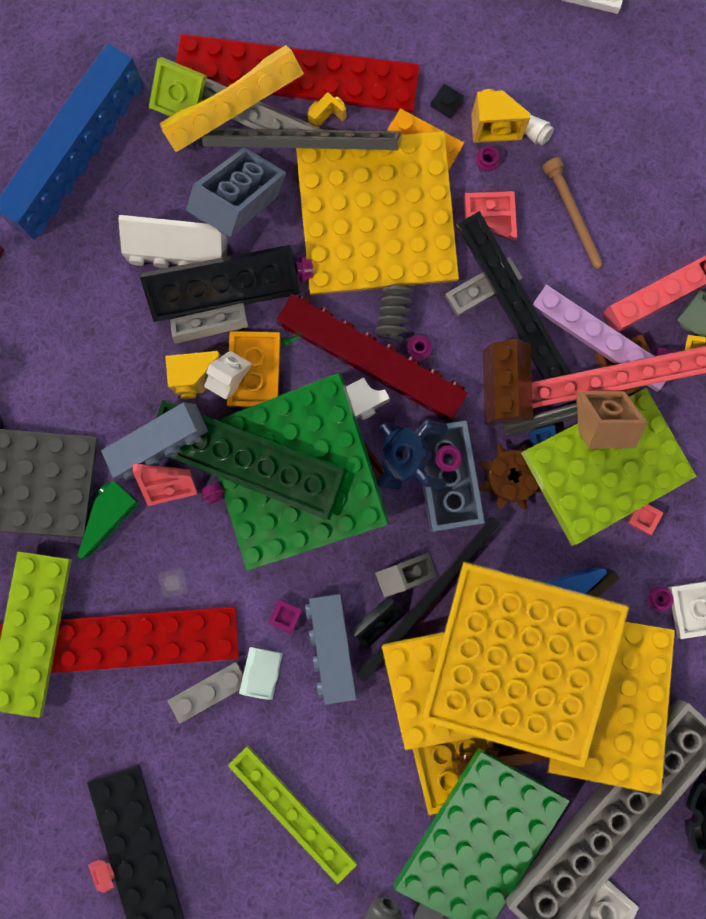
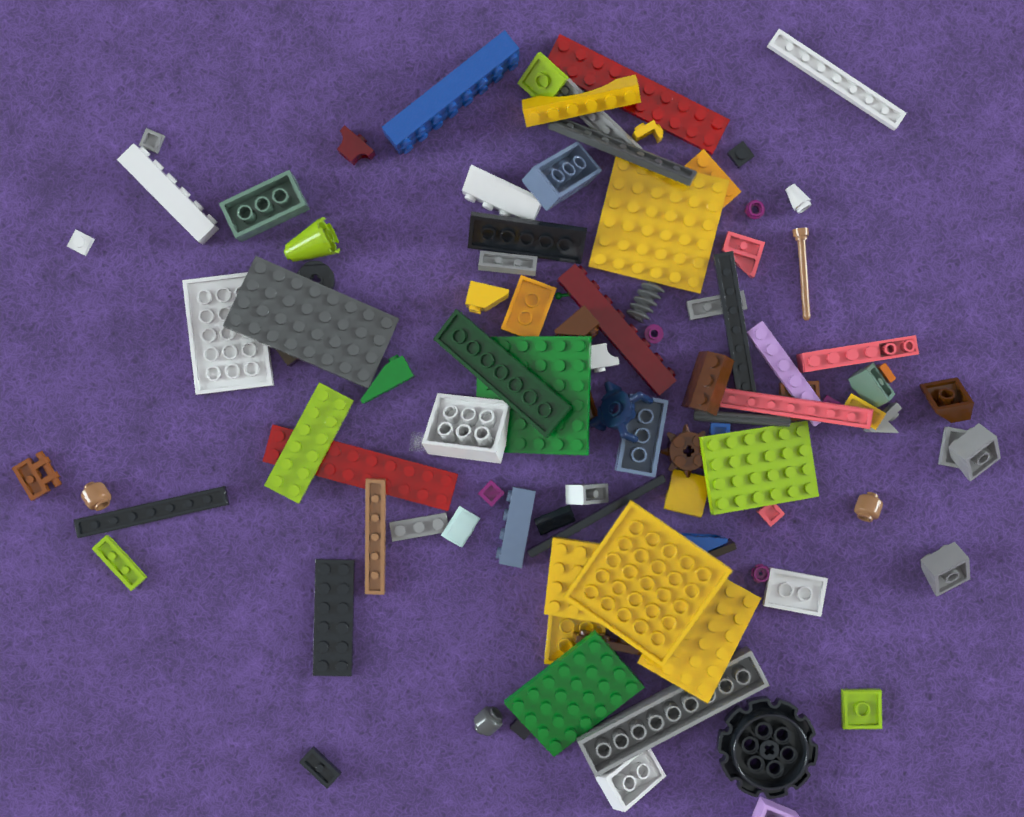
camera: 15 degrees right, 5 degrees up
(102, 875) = (306, 625): coral plate -> none
(154, 725) = (375, 535): none -> medium nougat plate
(155, 440) = (441, 337): sand blue brick -> none
(164, 483) = (437, 369): coral wing -> none
(213, 493) = (469, 388): magenta plate -> none
(226, 374) = (509, 307): white brick -> none
(226, 544) = (467, 428): none -> white slope
(293, 814) = (450, 630): lime plate -> none
(304, 269) = (590, 246): magenta plate -> none
(320, 363) = (579, 324): none -> reddish brown slope
(454, 452) = (652, 423): magenta plate -> none
(498, 117) = (772, 183): yellow slope -> none
(531, 531) = (686, 494): none -> yellow slope
(609, 419) = (769, 435): medium nougat slope -> none

